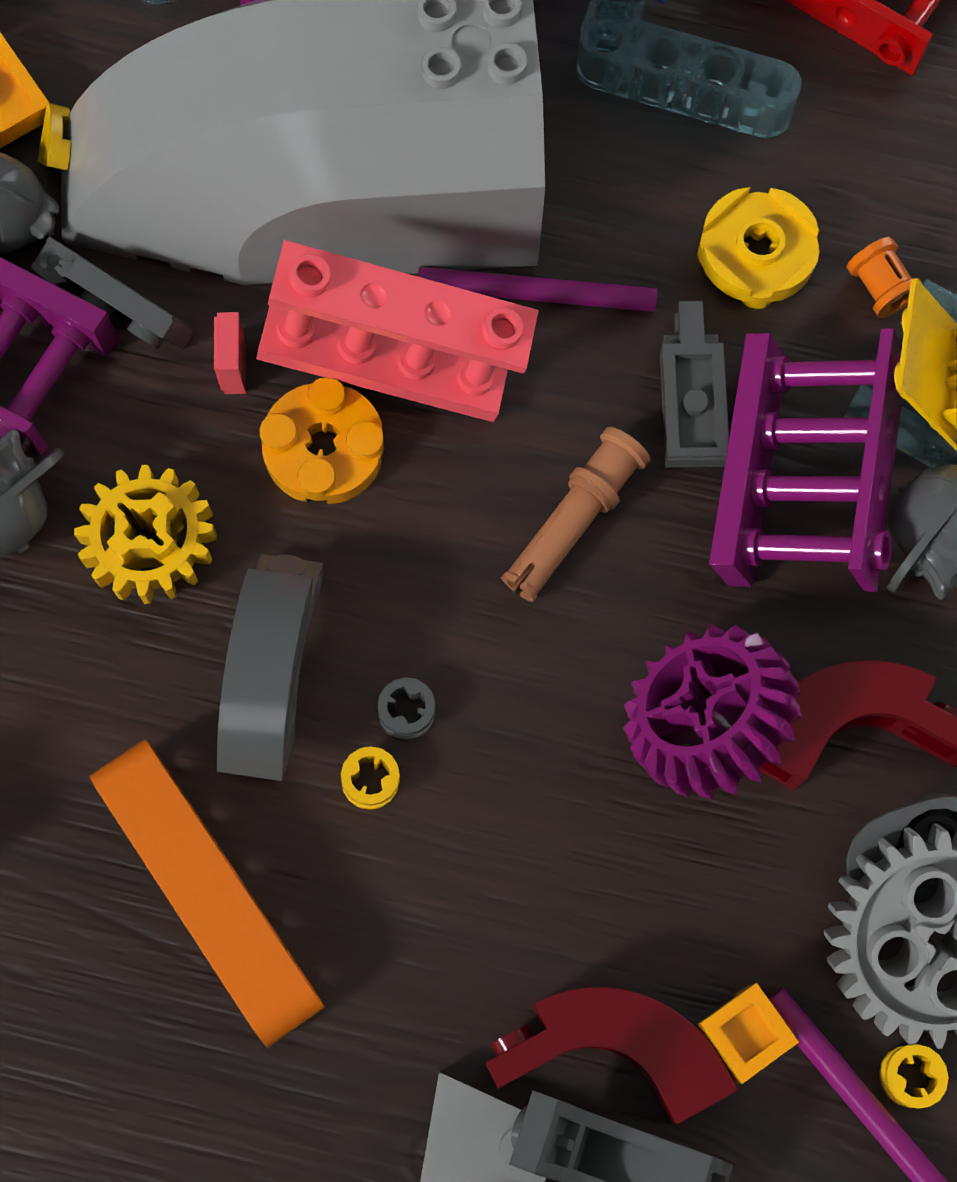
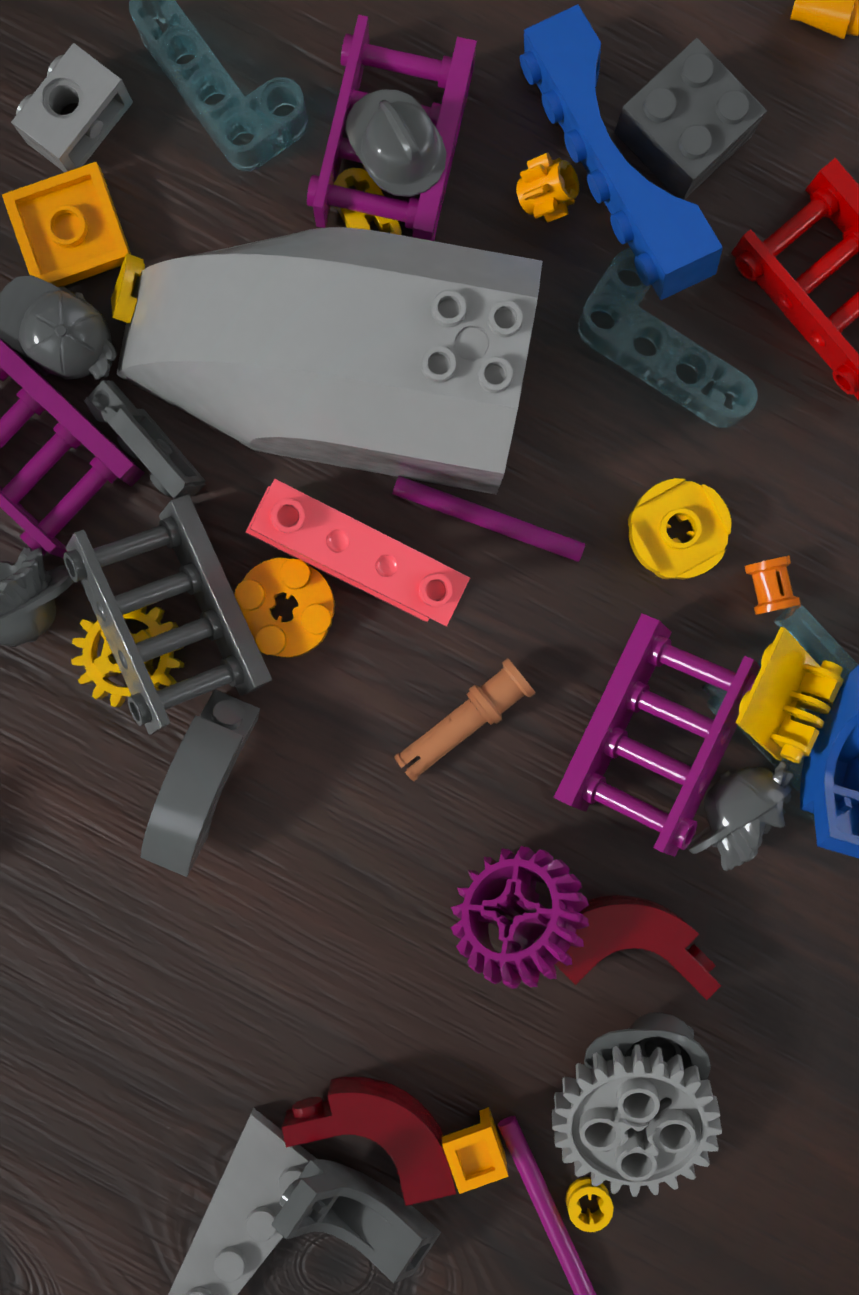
camera: 10 degrees right, 15 degrees up
(207, 893) = (113, 941): orange beam -> none
(210, 420) = (198, 575): none -> dark grey fence
(230, 353) = (227, 517): coral tile -> none
(351, 772) = (243, 876): yellow bush -> none
(414, 691) = (287, 852): dark grey bush -> none
(693, 392) = (587, 643): dark grey hinge -> none

